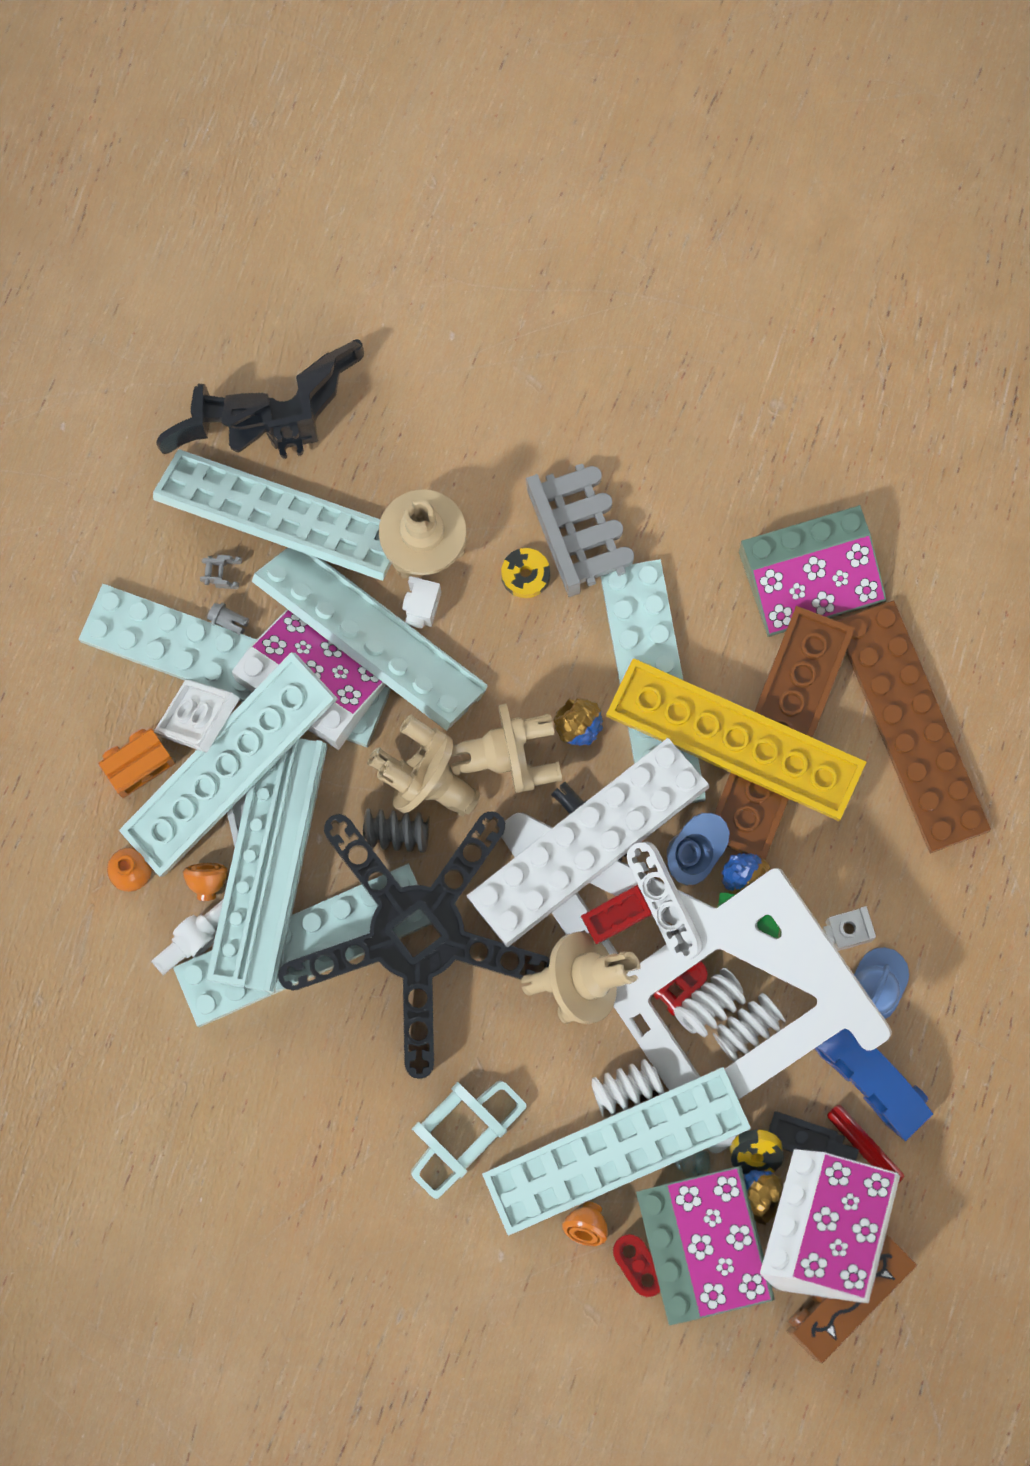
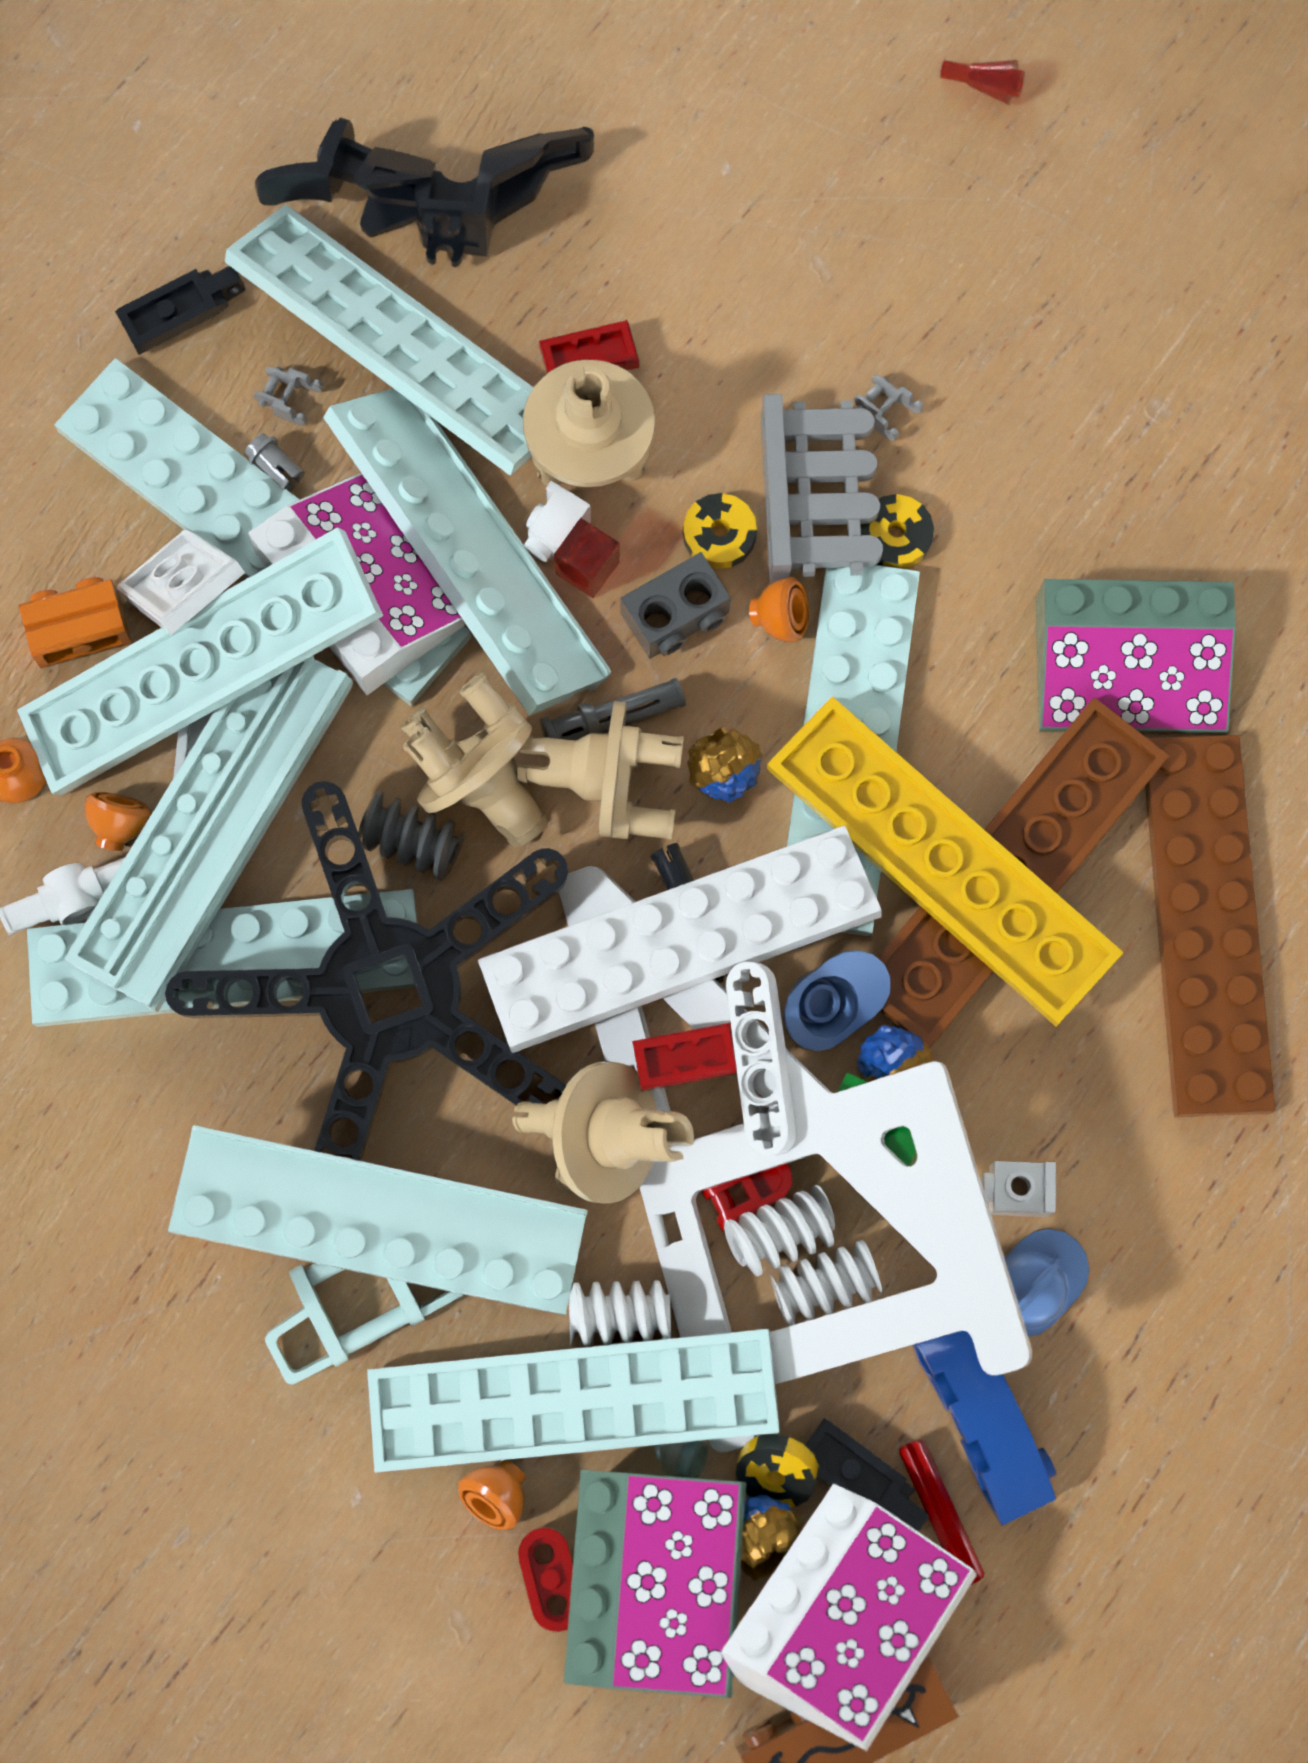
camera: 10 degrees right, 0 degrees up
(131, 537) = (178, 306): none -> black hinge
(412, 477) = (604, 343): none -> red plate
(448, 617) = (587, 557): none -> clear red brick
(458, 1078) = (377, 1220): none -> light aqua plate
(490, 718) = (586, 718): none -> dark grey pin
(507, 626) = (668, 597): none -> dark grey brick
(582, 612) = (782, 610): none -> orange brick
(597, 446) = (882, 384): none -> light grey piece
(605, 225) = (994, 78): none -> clear red cone
(647, 528) = (915, 523): none -> piece

